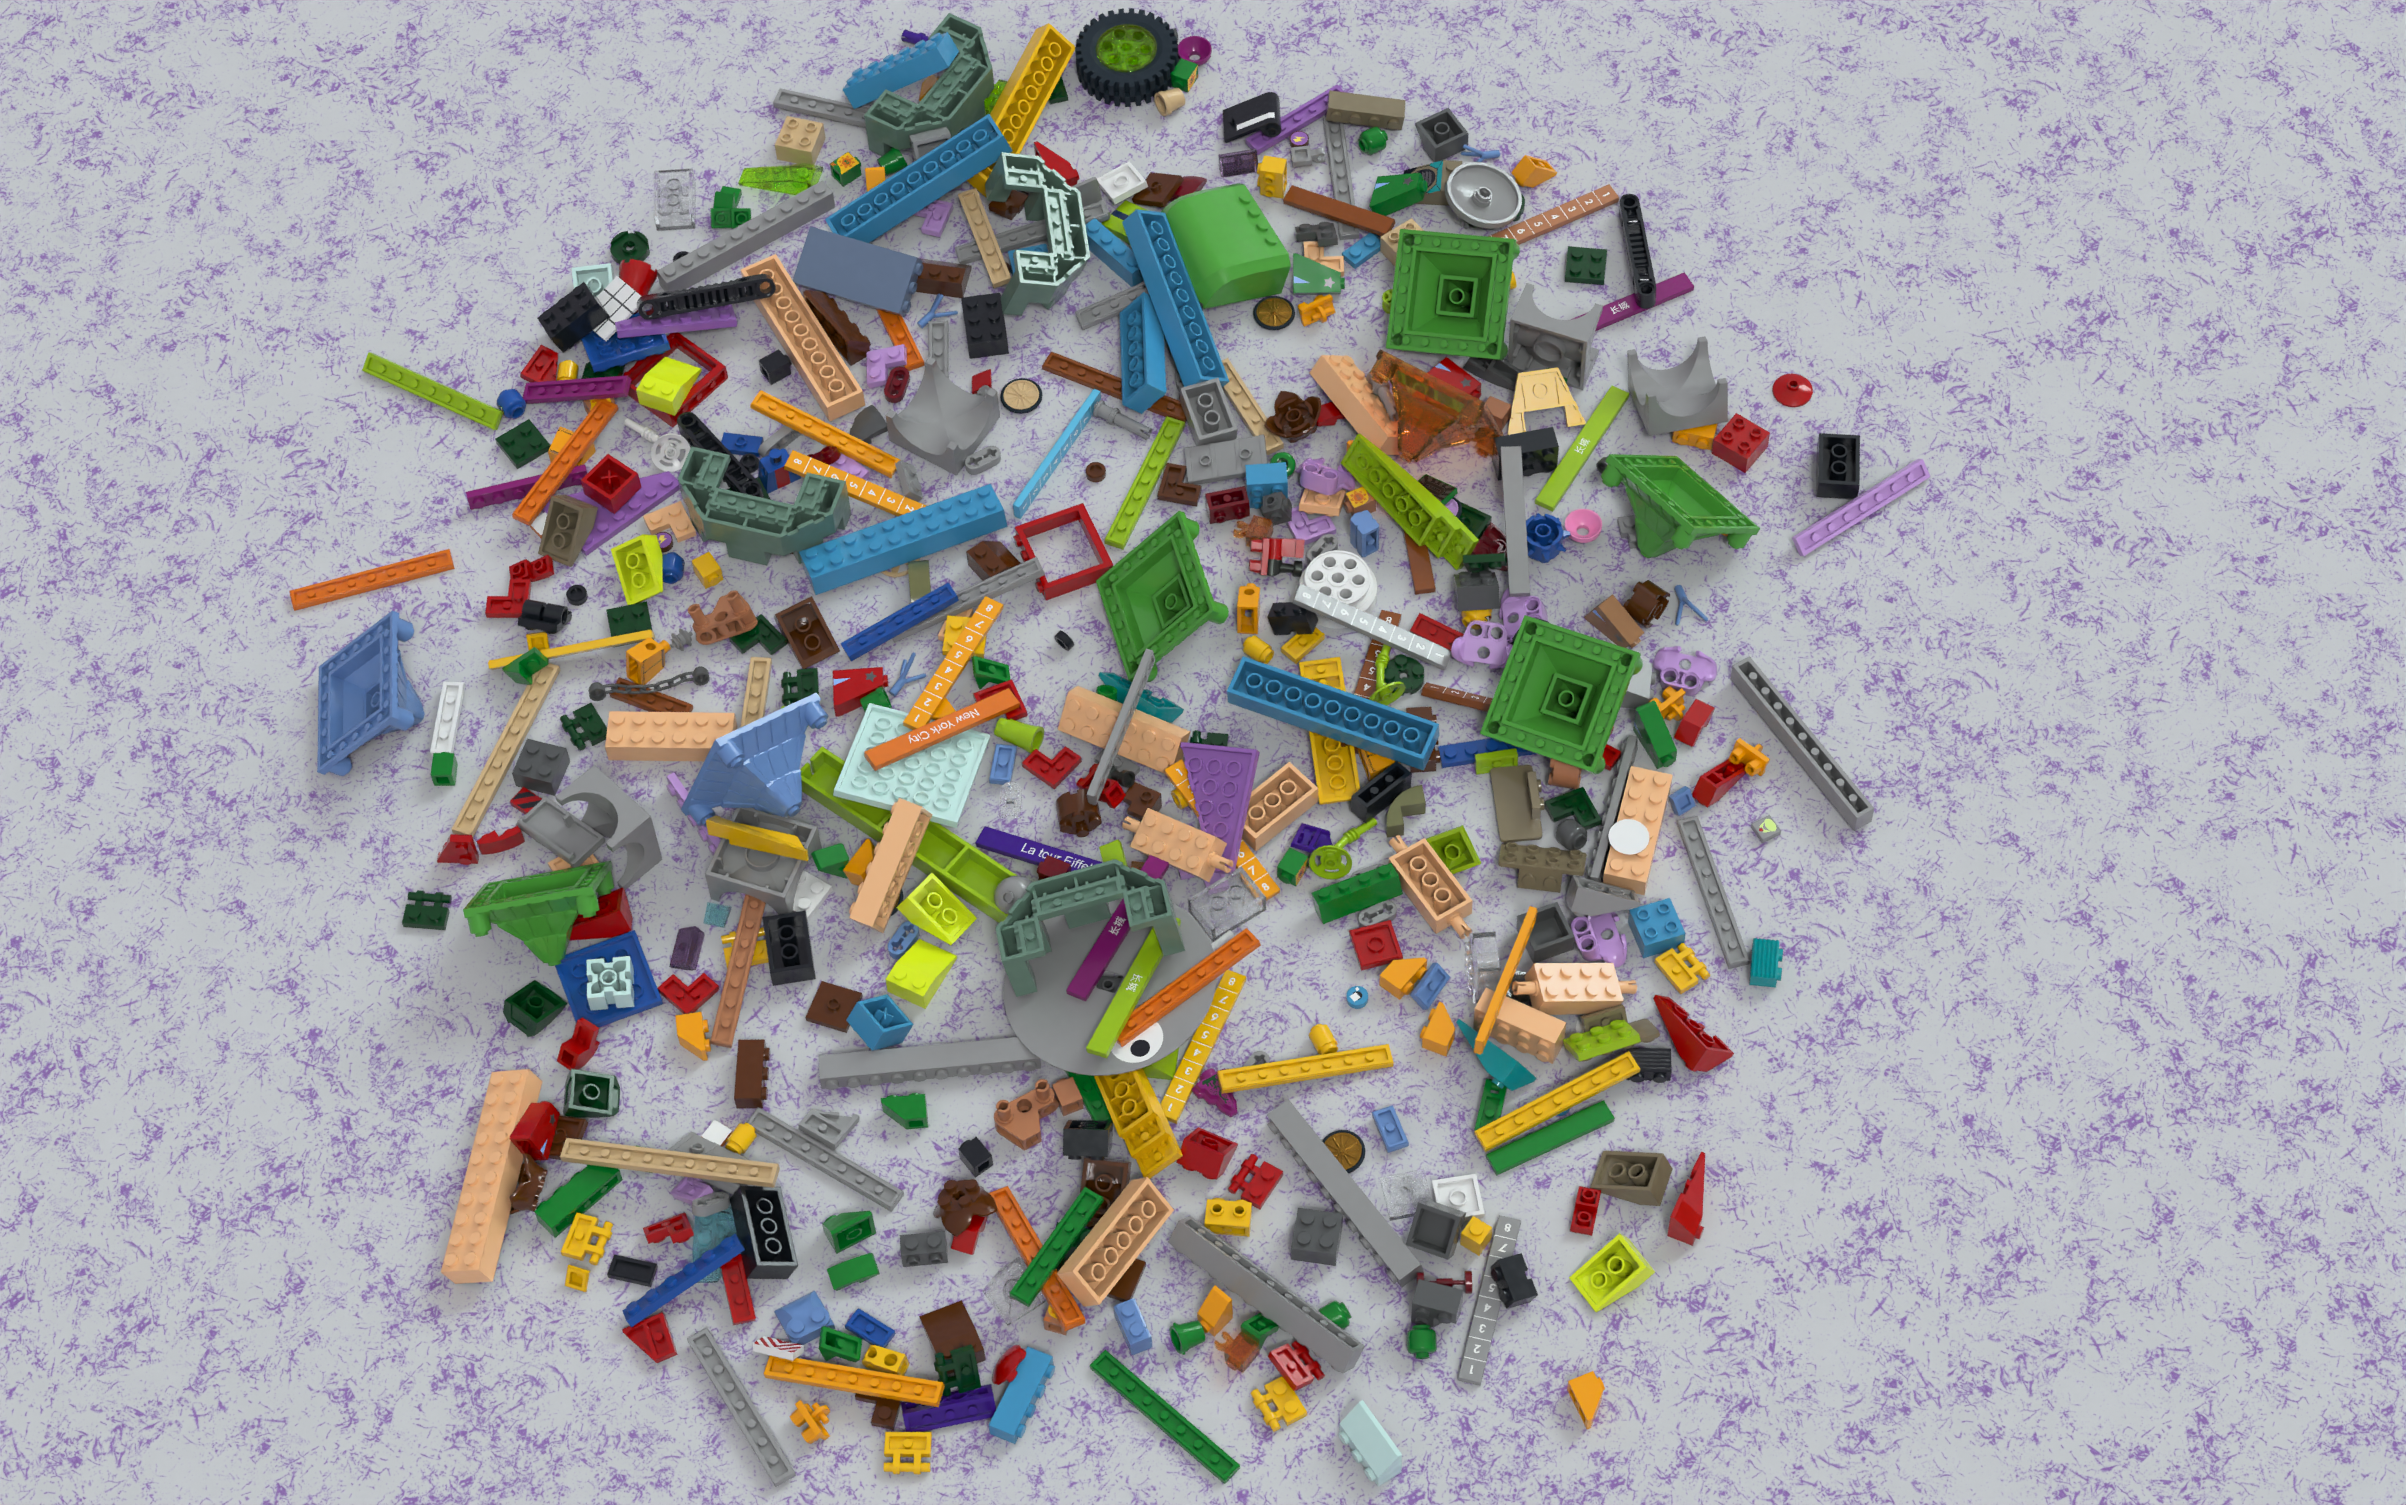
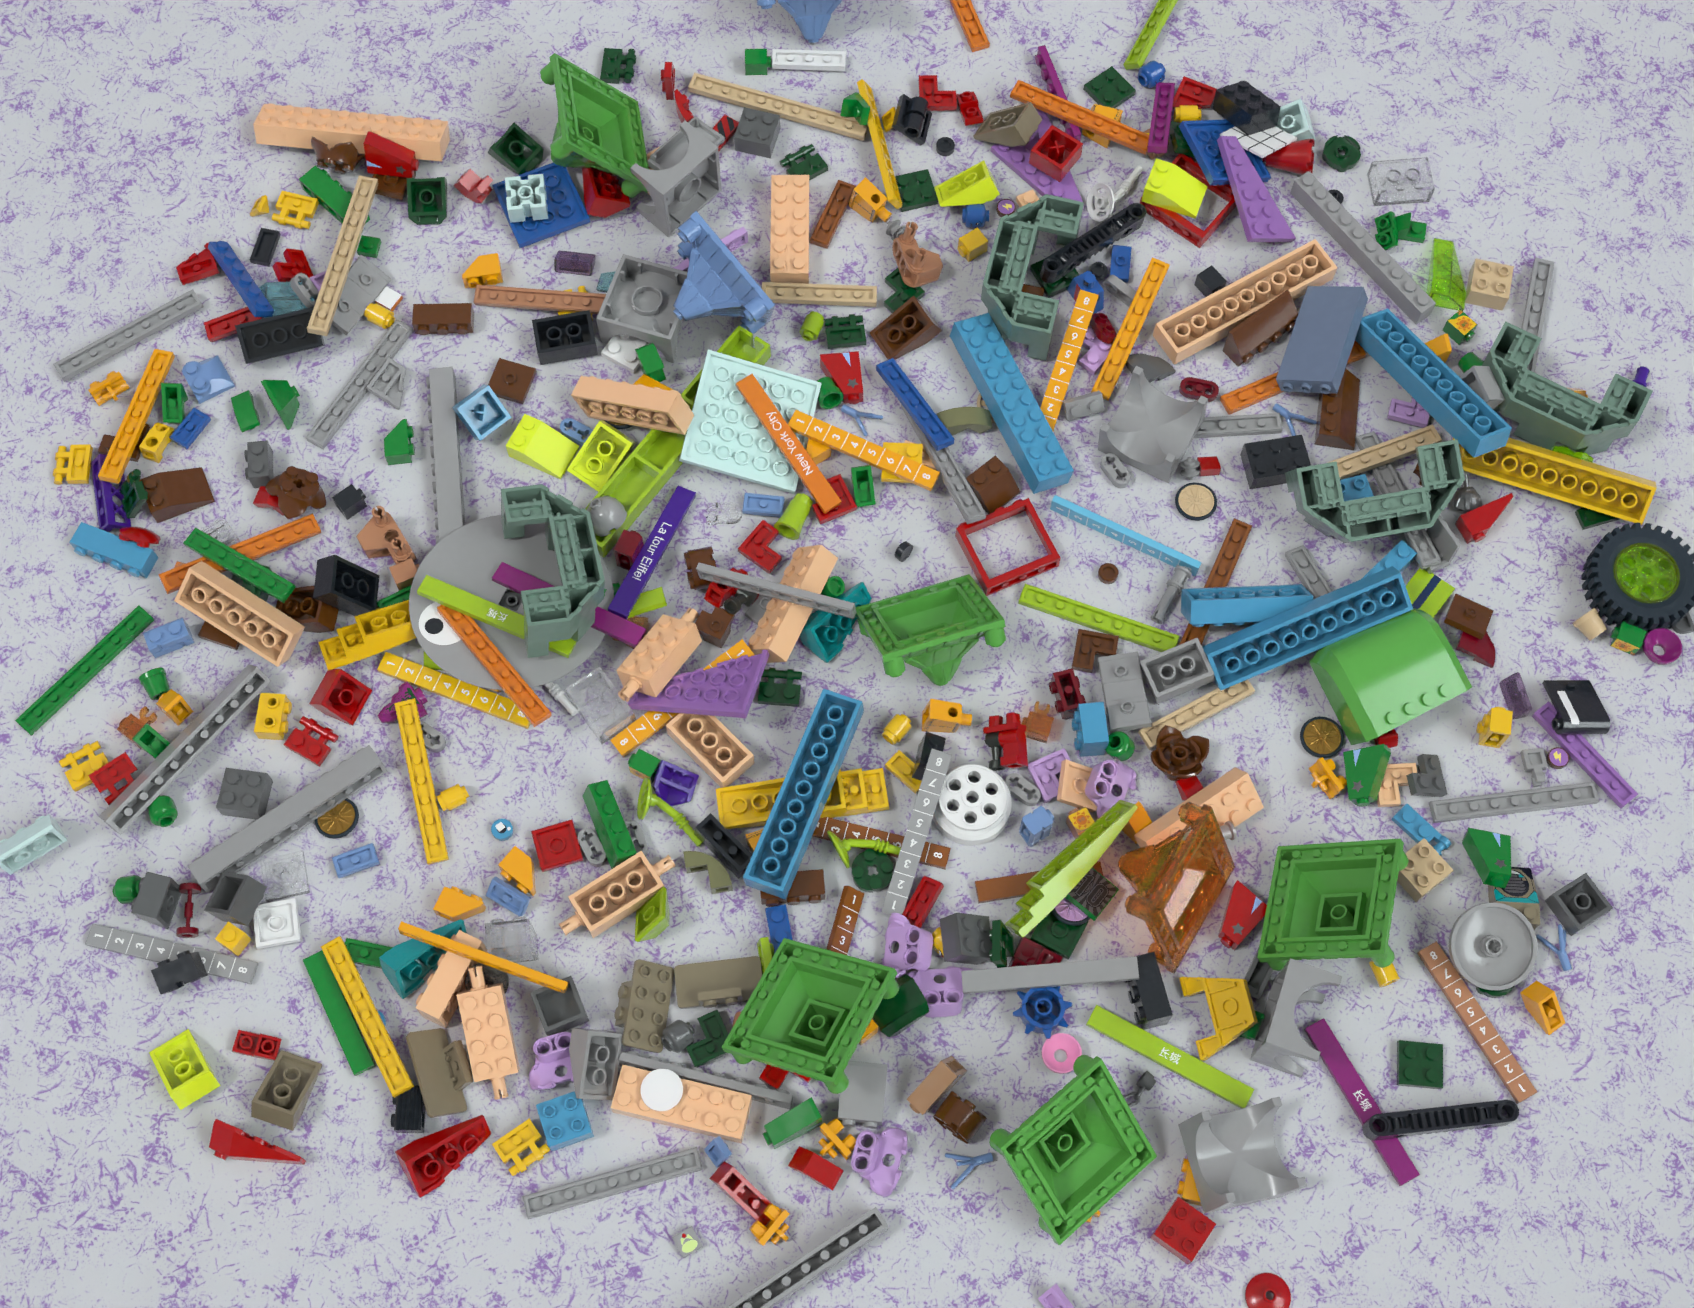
camera: 85 degrees right, 10 degrees up
(598, 693) = (858, 248): dark grey piece -> none
(690, 997) = (523, 263): red plate -> none
(706, 297) = (1280, 234): black gear -> none
(757, 838) = (655, 288): yellow wedge -> none
(778, 1348) = (176, 357): white tile -> none
(880, 360) = (1225, 372): lavender plate -> none
(900, 69) = (1576, 355): dark azure brick -> none
(1122, 183) = (1472, 581): white plate -> none
(1277, 508) = (1061, 739): dark grey brick -> none
(1338, 211) = (1460, 798): dark orange tile -> none
(1365, 110) = (1601, 822): dark tan brick -> none
(1372, 140) = (1563, 832): green head -> none
(1499, 410) = (1205, 962): nougat brick -> none
(1586, 1395) = (59, 1041): light orange slope -> none
(1601, 1040) = (427, 1058): lime plate -> none
(1764, 962) = (521, 1233): teal brick -> none

